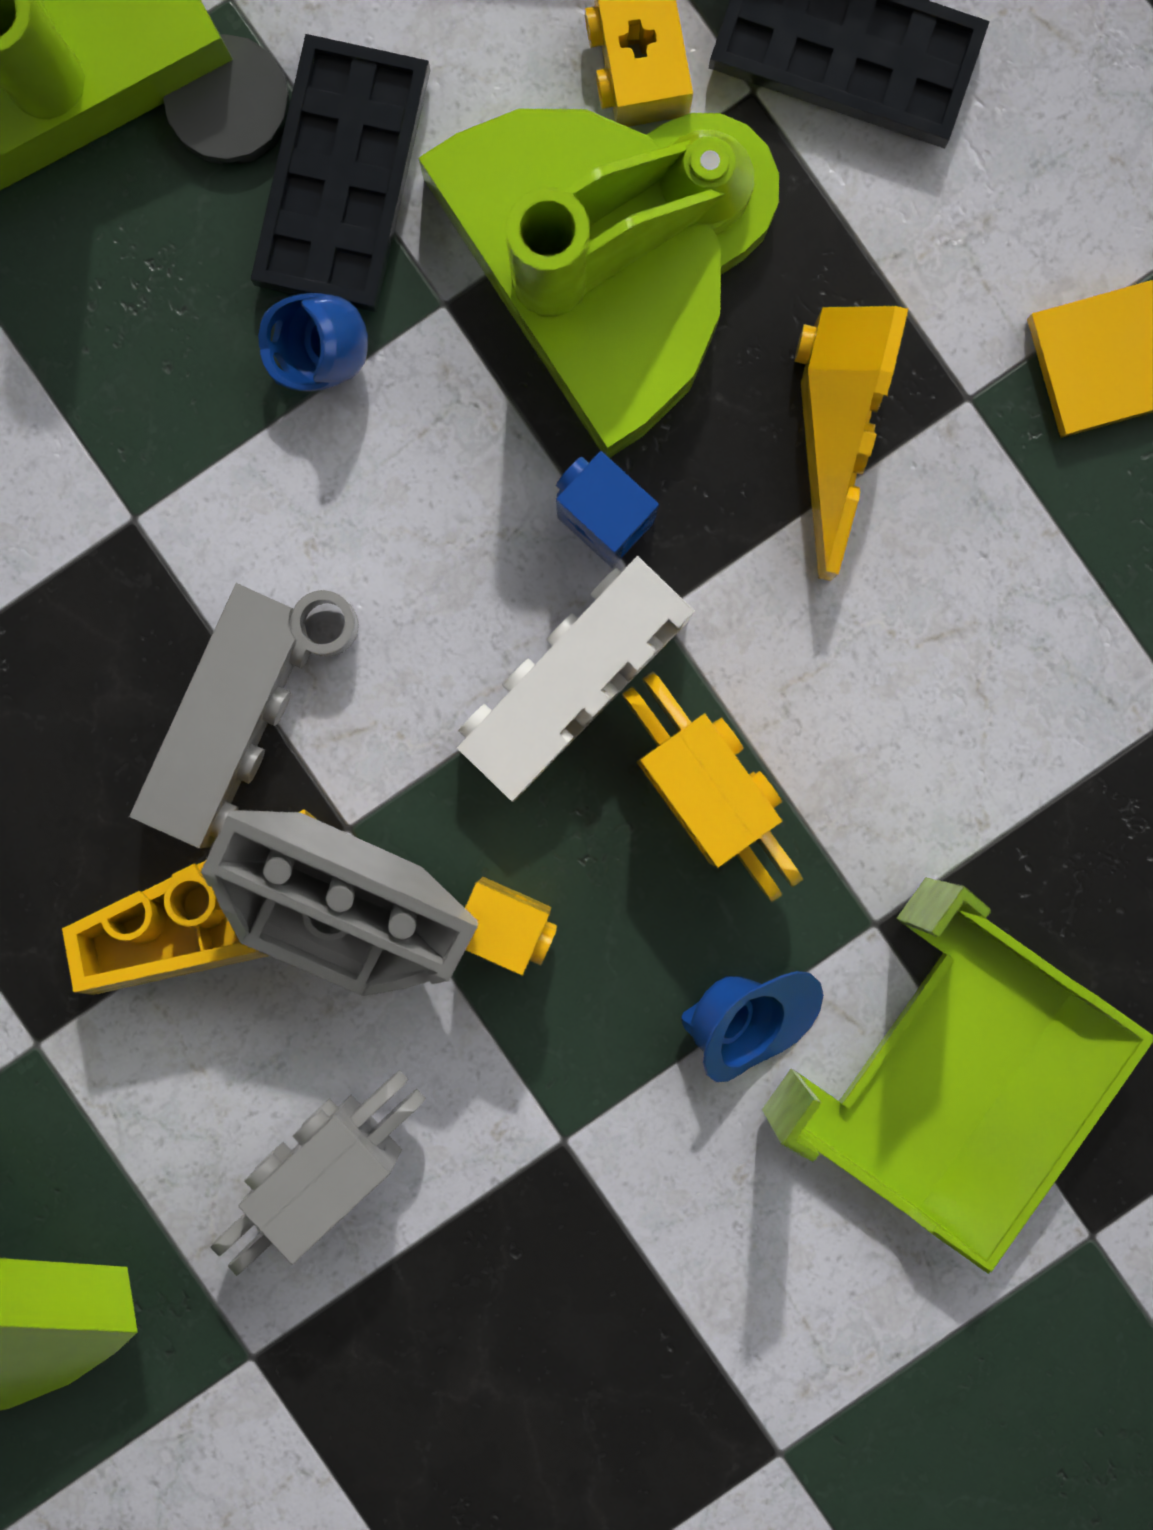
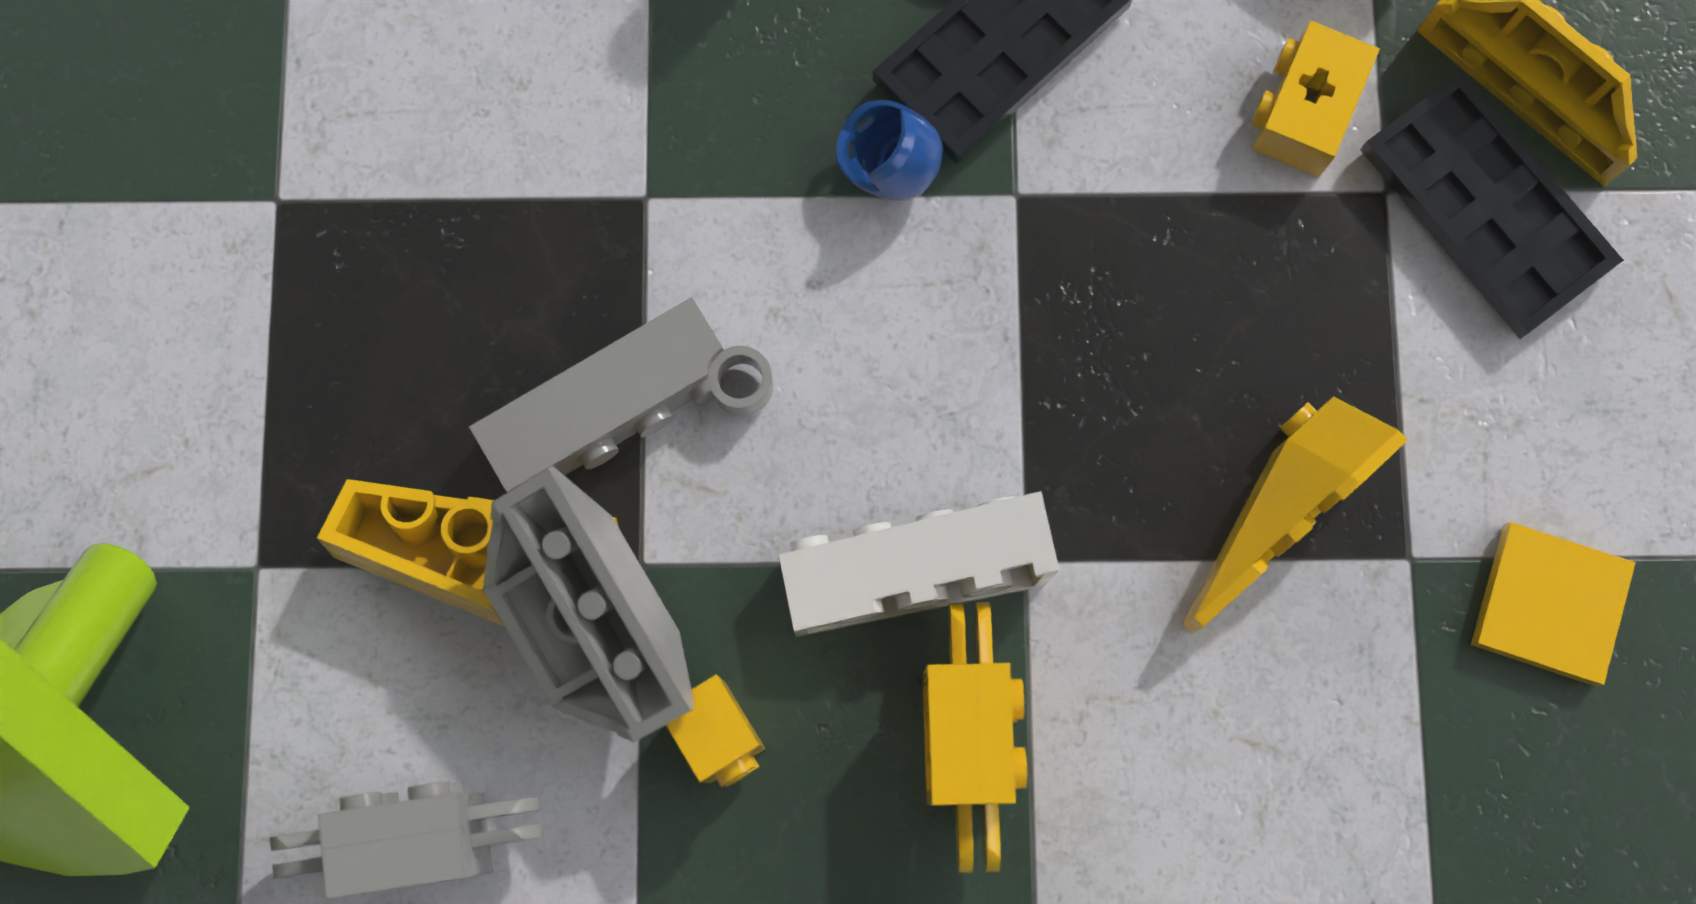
camera: 30 degrees right, 10 degrees down
(604, 507) = (1039, 438): blue brick -> none
(609, 245) = (1185, 235): lime piece -> none

